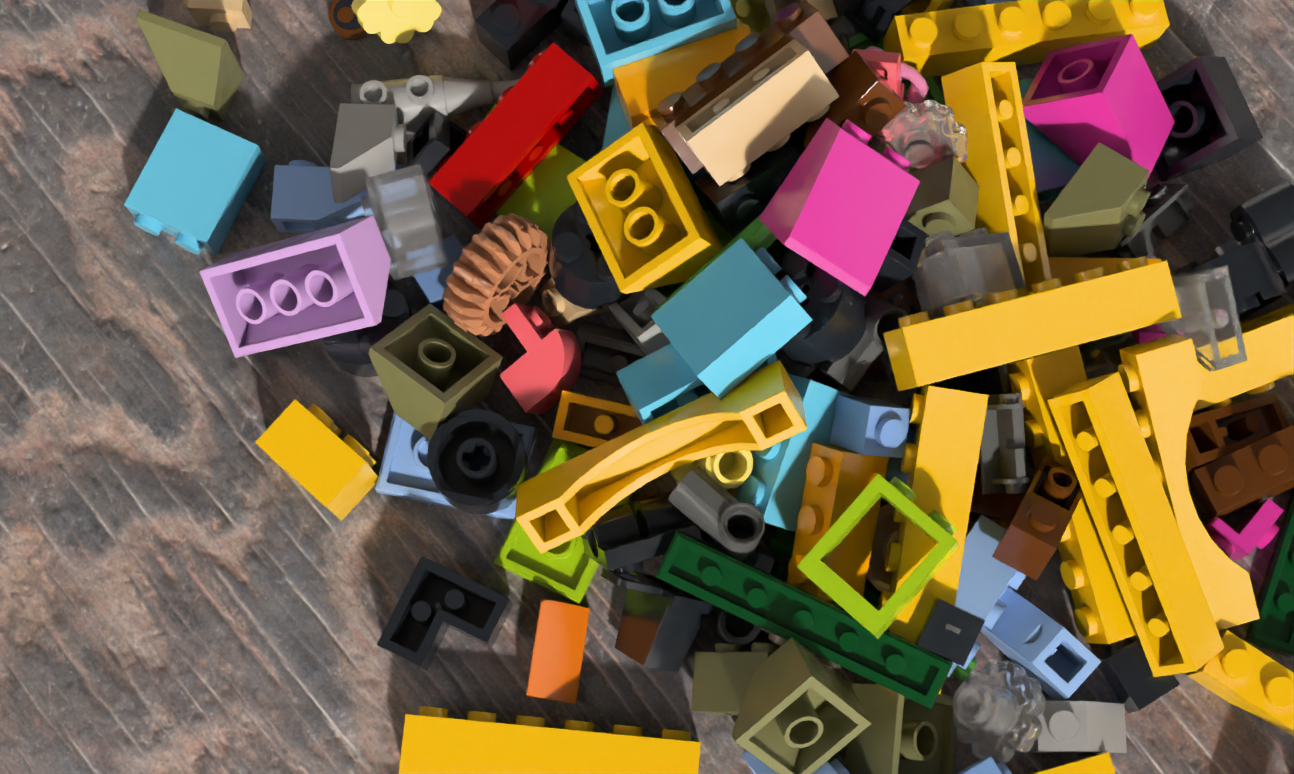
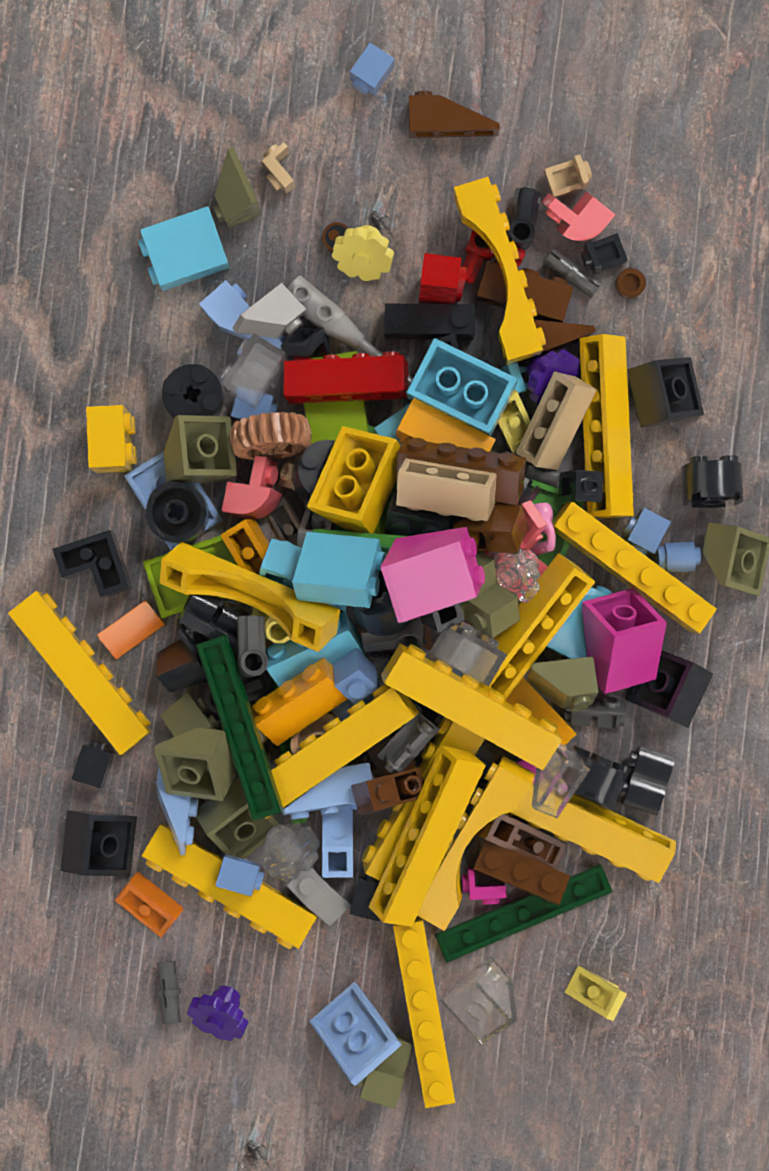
camera: 45 degrees right, 10 degrees up
(301, 287) = (177, 353): lavender slope -> none
(900, 497) = (263, 736): lime window -> none
(950, 631) = (295, 798): black tile -> none

